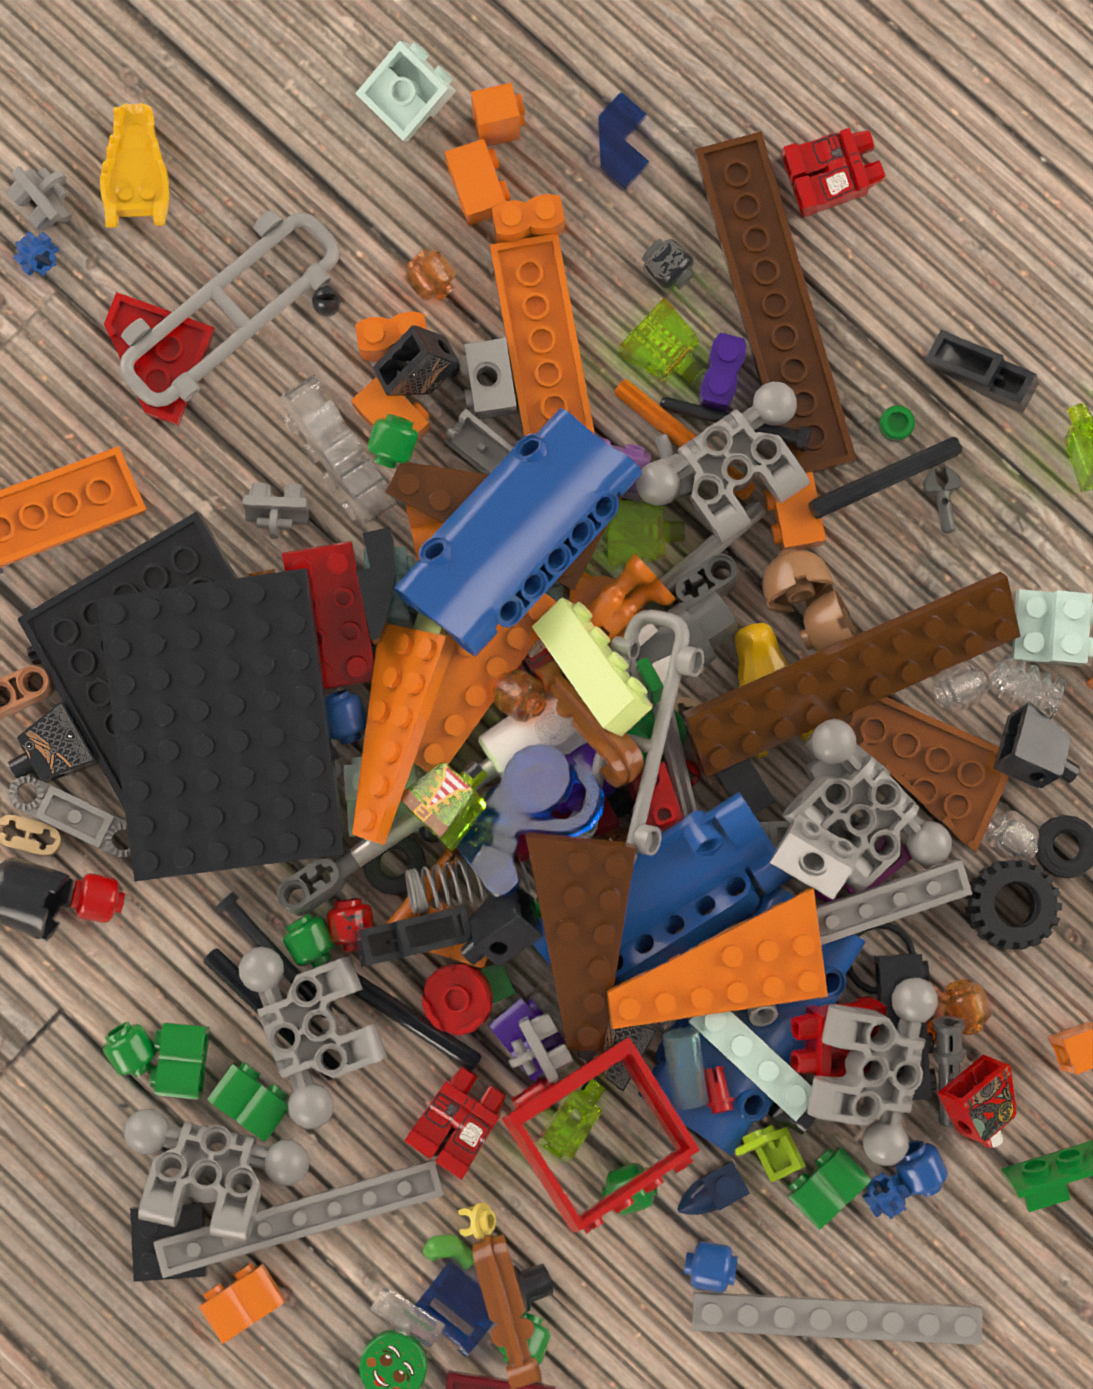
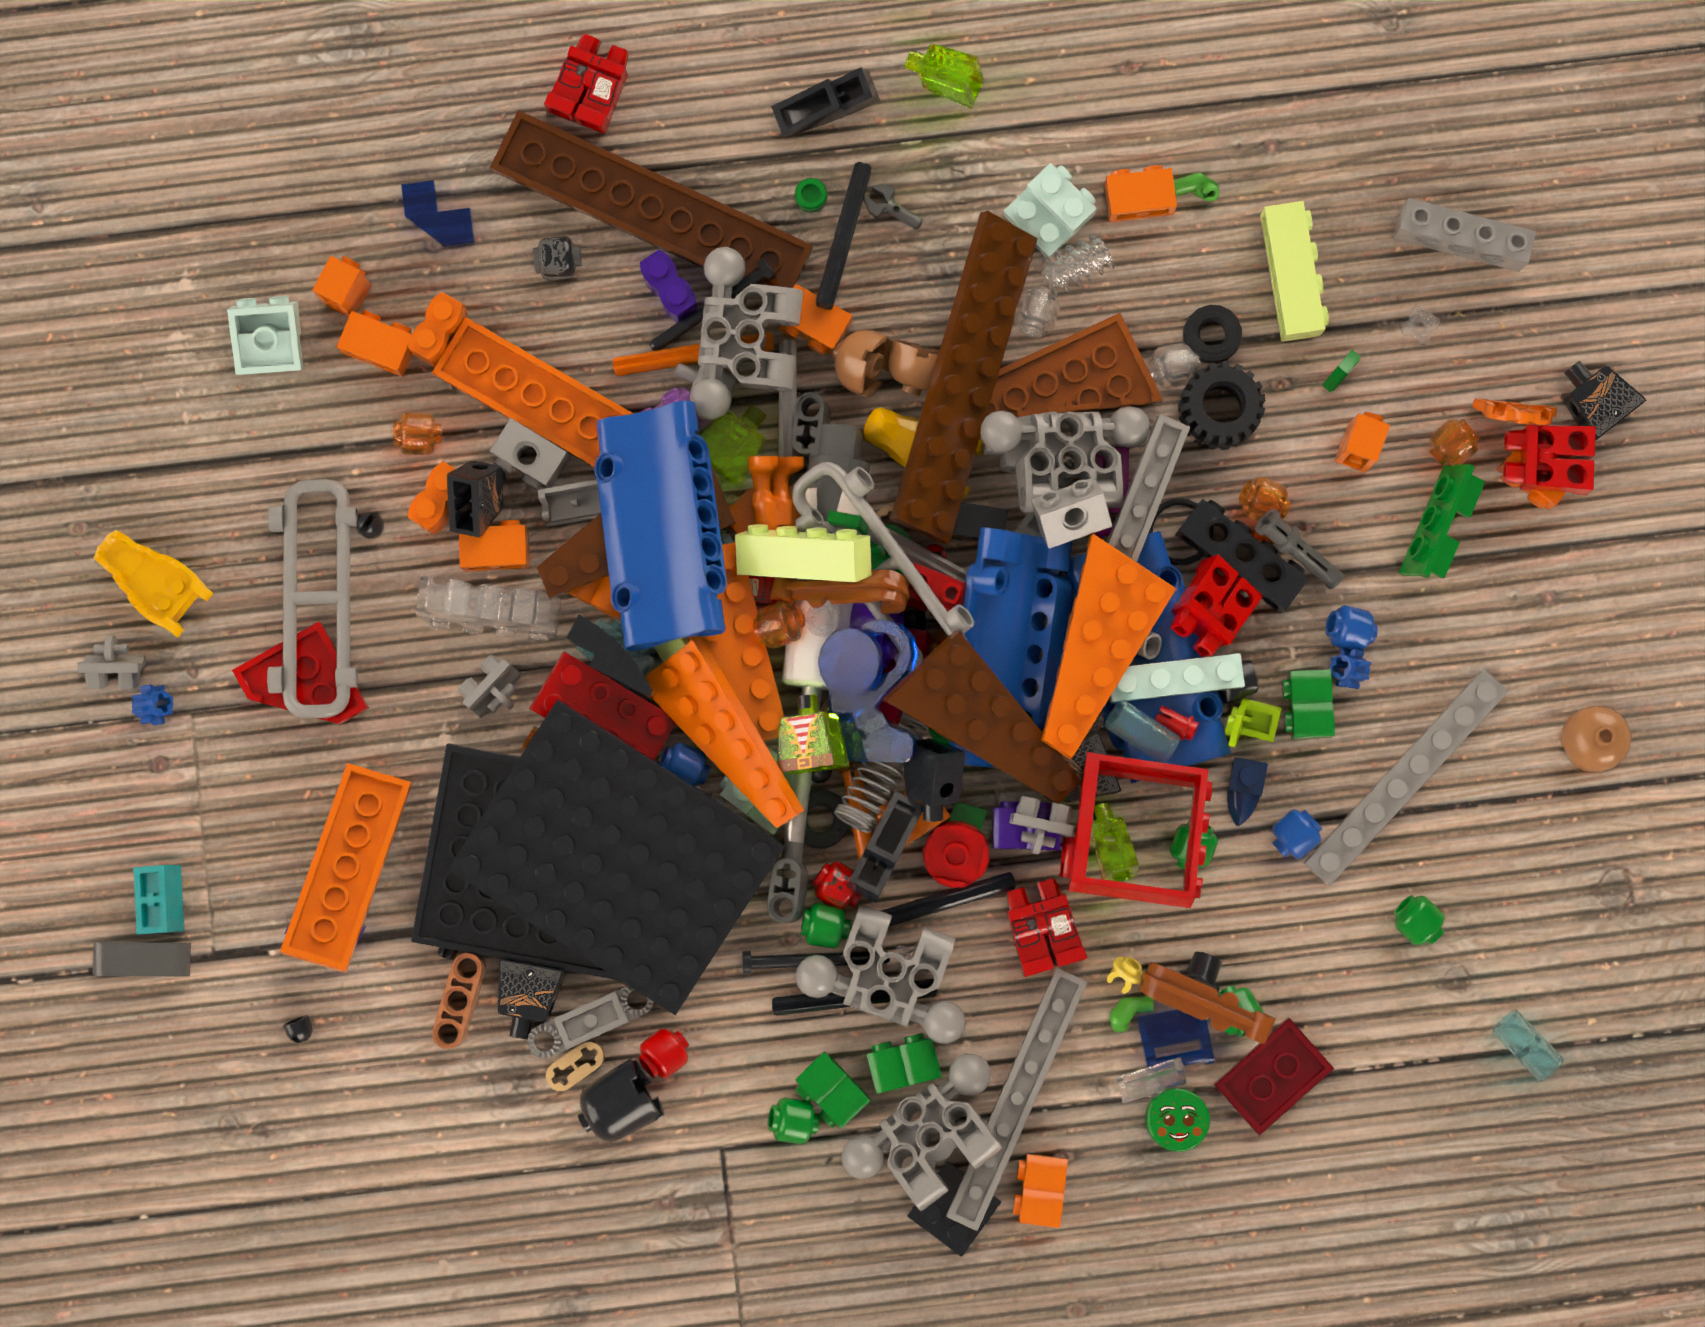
camera: 45 degrees left, 0 degrees up
(392, 440) = (516, 560): green head -> none
(663, 345) = (612, 311): clear neon green torso -> none
(888, 1050) = (1250, 579): light grey connector -> none
(981, 1100) = (1339, 545): red torso -> none
(1035, 749) = (1125, 296): torso -> none

